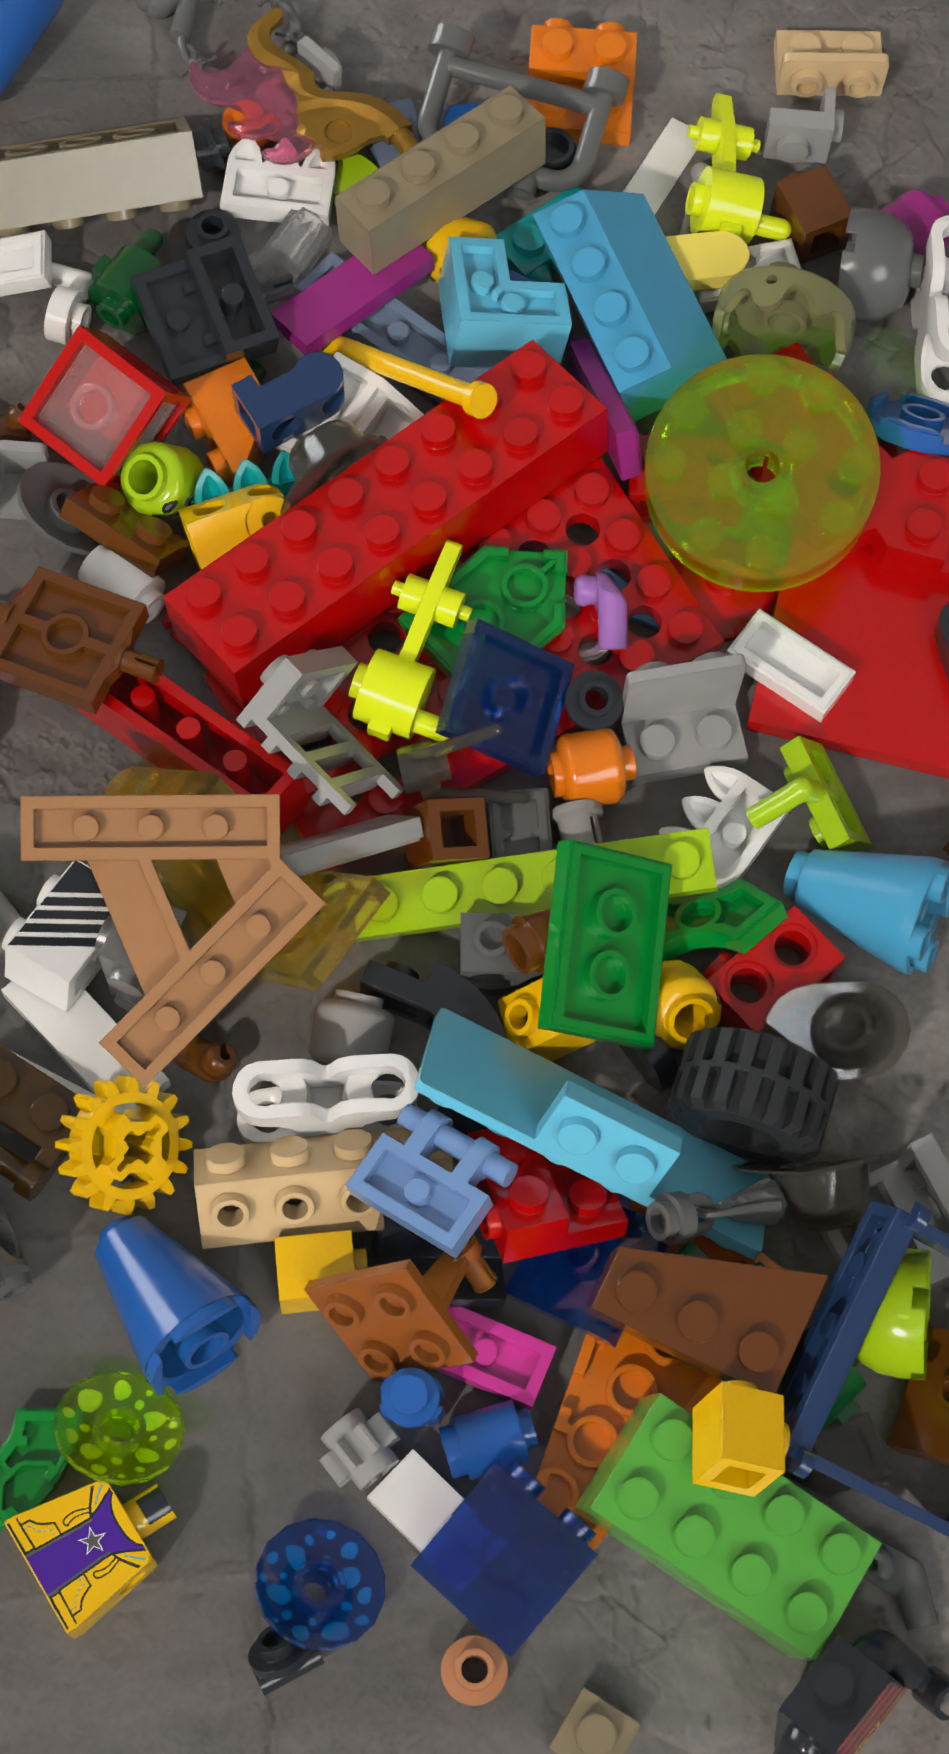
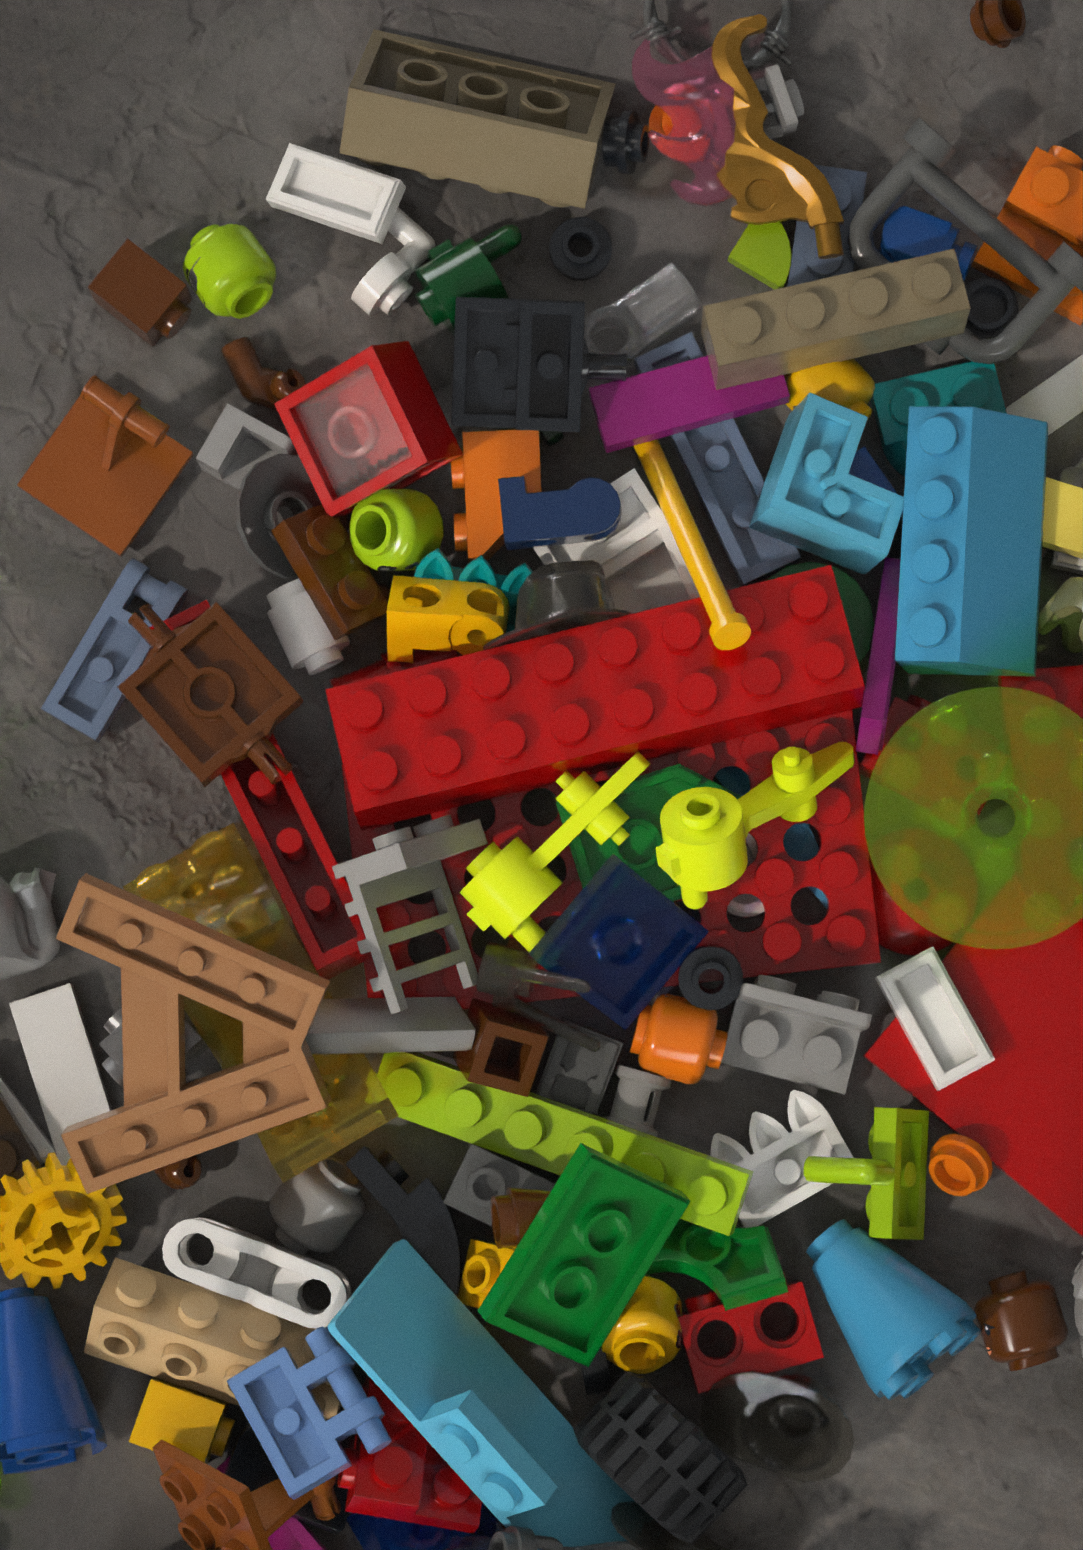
camera: 30 degrees right, 15 degrees up
(55, 946) = (71, 996): white brick -> none
(271, 190) = (669, 227): white plate -> none
(538, 566) = (709, 827): none -> neon yellow piece
(610, 605) = (774, 888): medium lavender arm -> none
(870, 768) = (959, 1165): none -> orange plate

